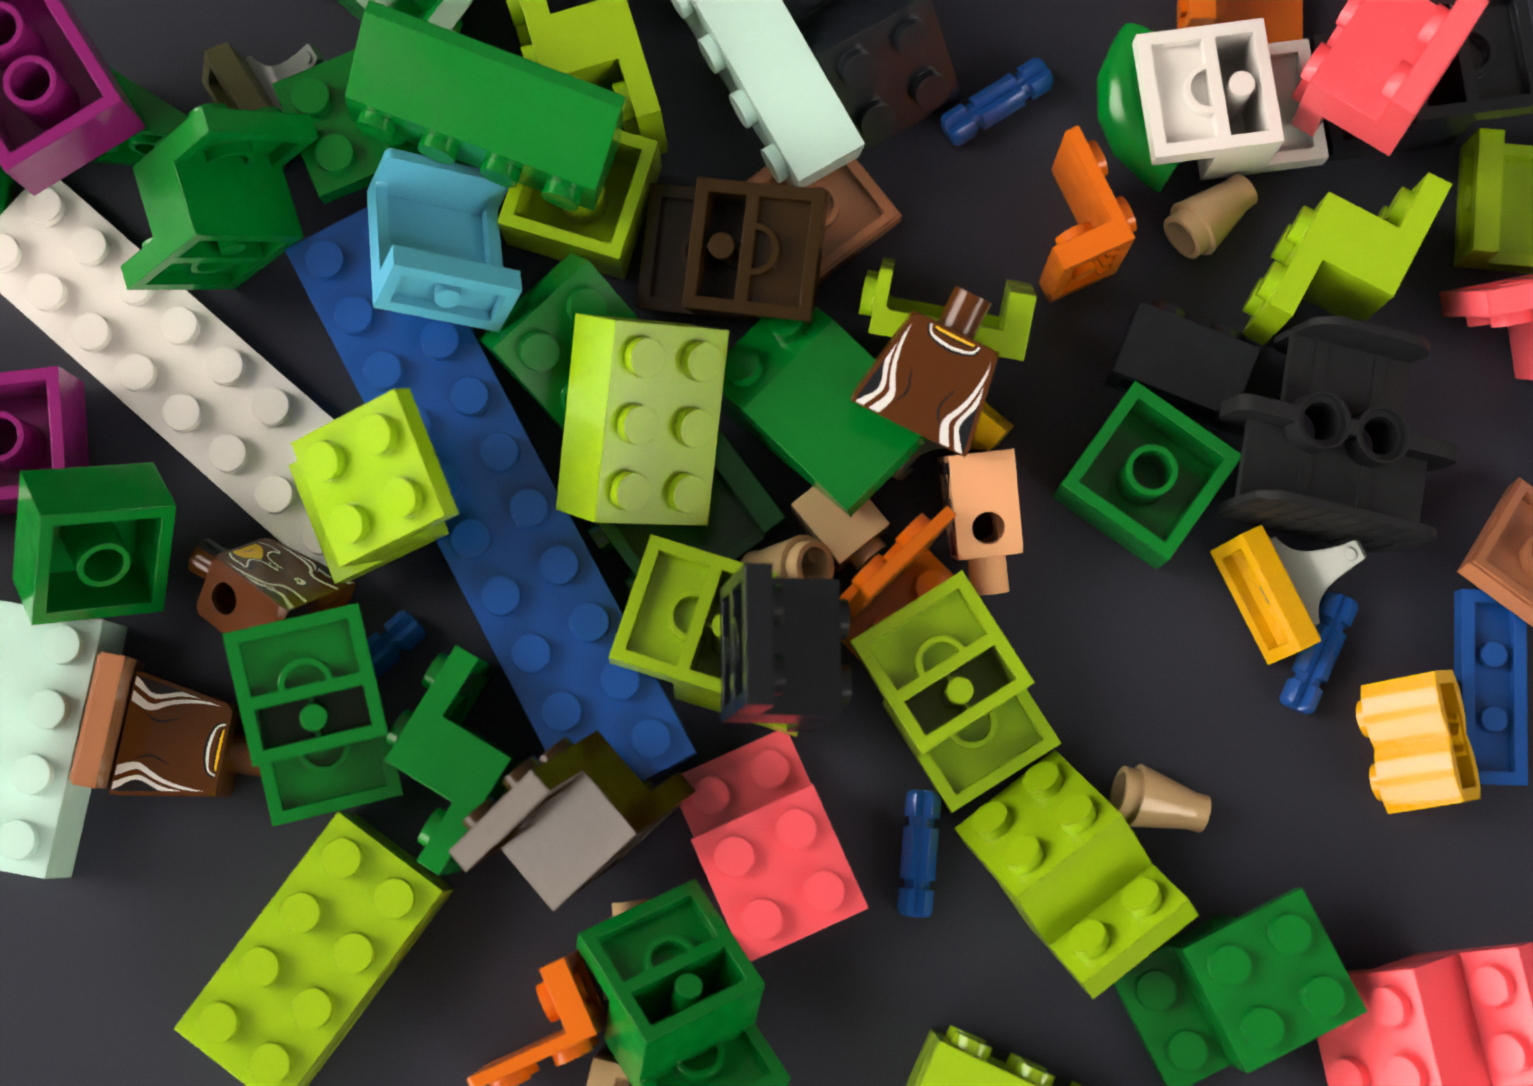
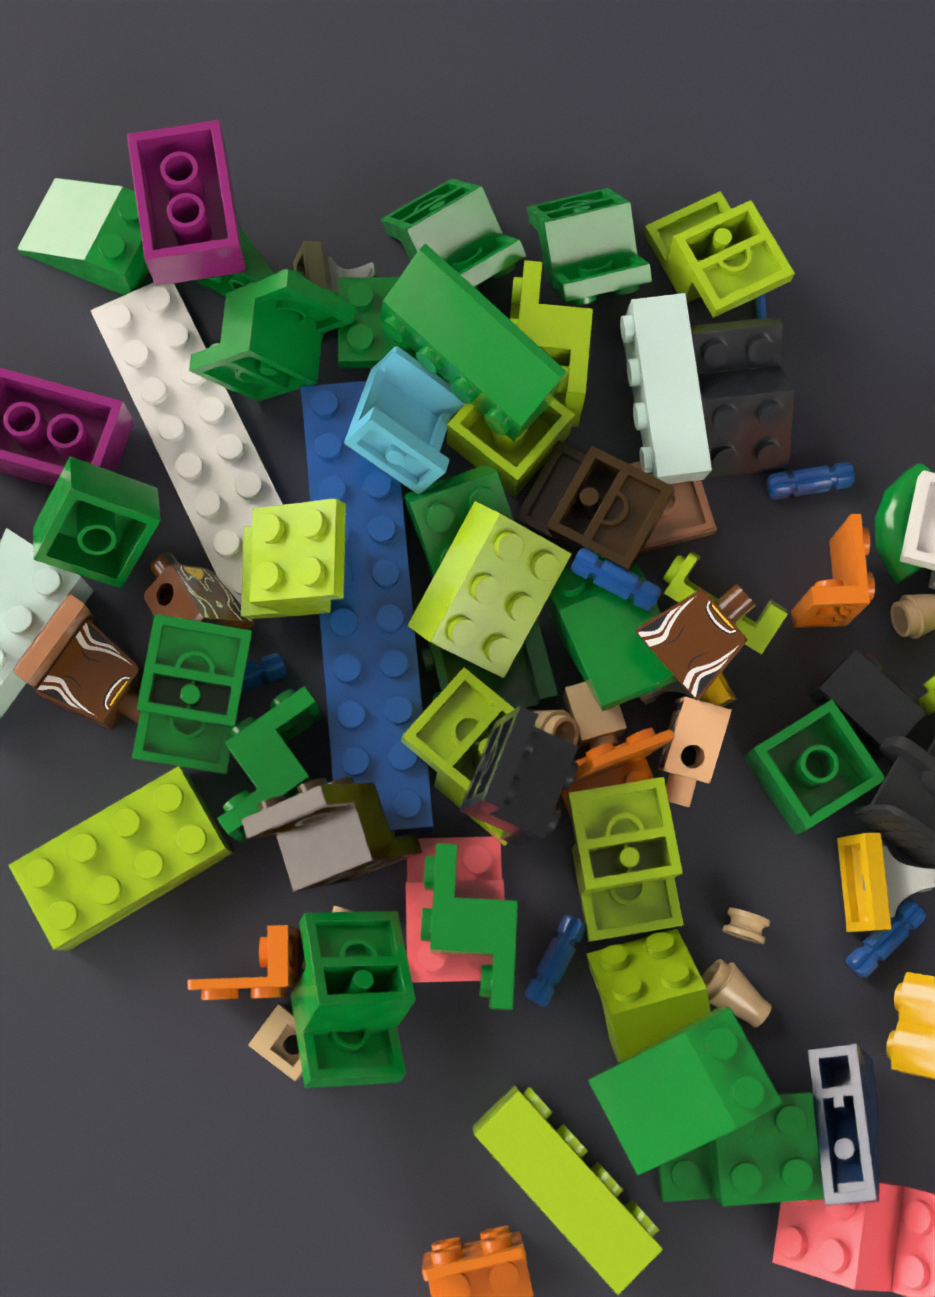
camera: 15 degrees right, 5 degrees down
(796, 868) = (470, 927): none -> green bracket
(799, 340) = (616, 579): none -> blue axle
(1139, 710) = (746, 925): none -> tan bush
(1145, 954) = (684, 1090): none -> green slope
(1359, 907) = (846, 1123): none -> dark blue slope

